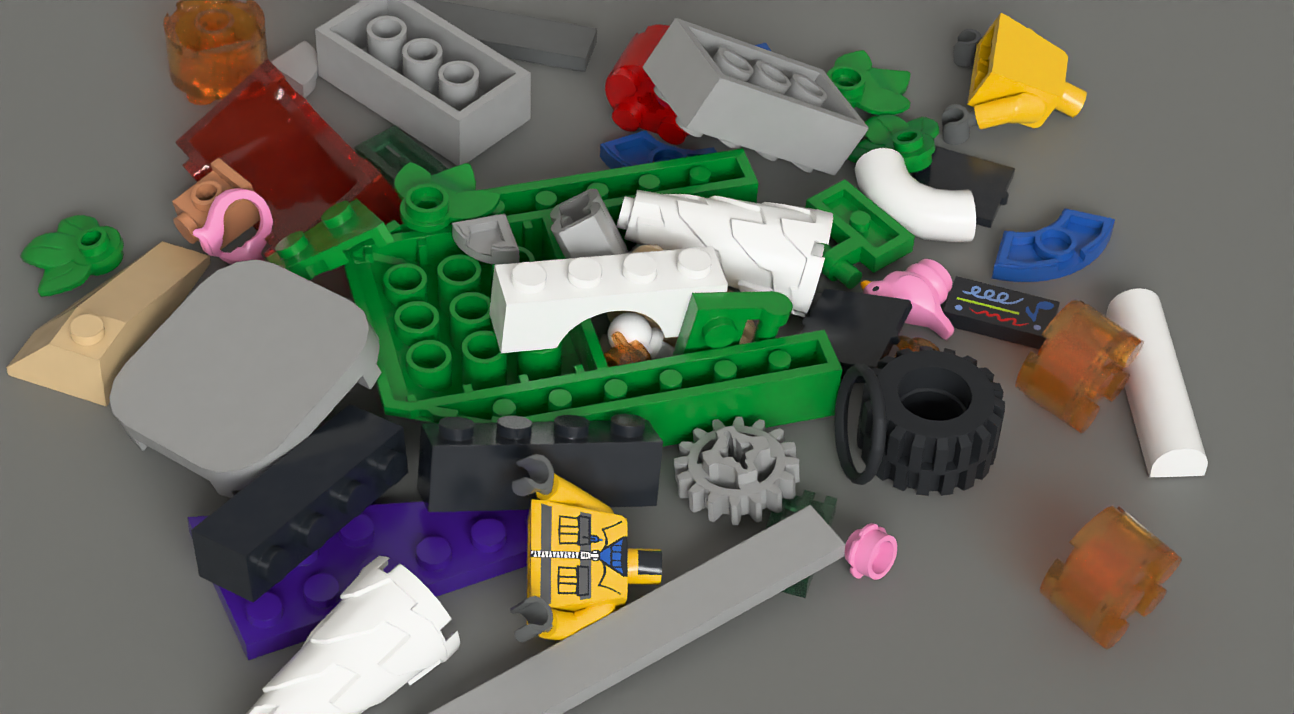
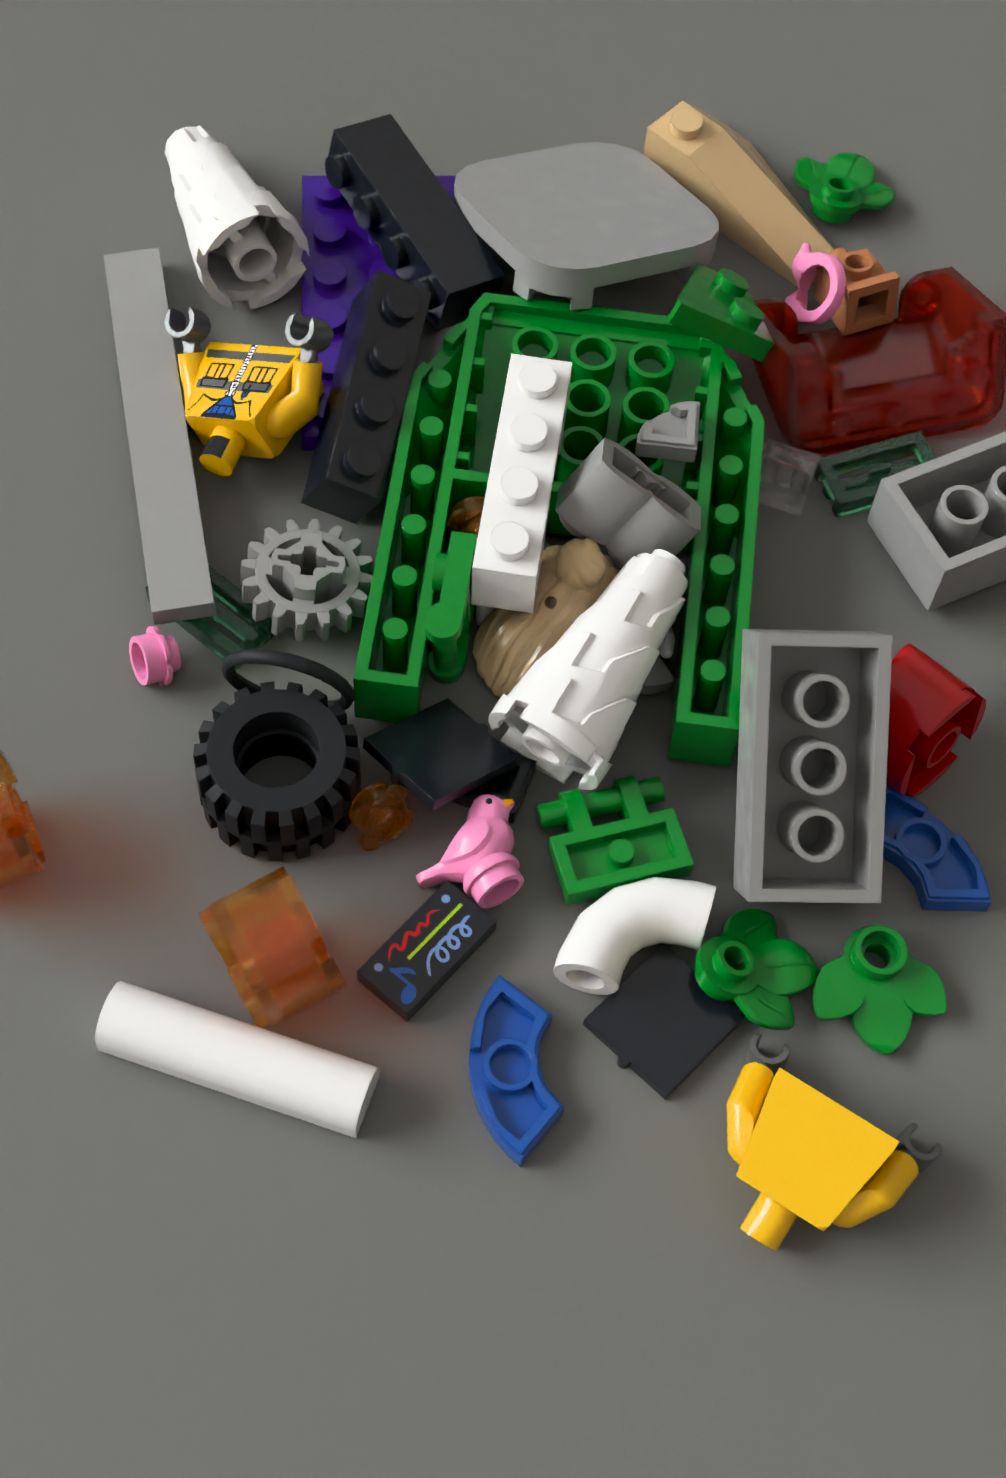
camera: 110 degrees right, 15 degrees up
(441, 198) = (752, 414): green plate -> none

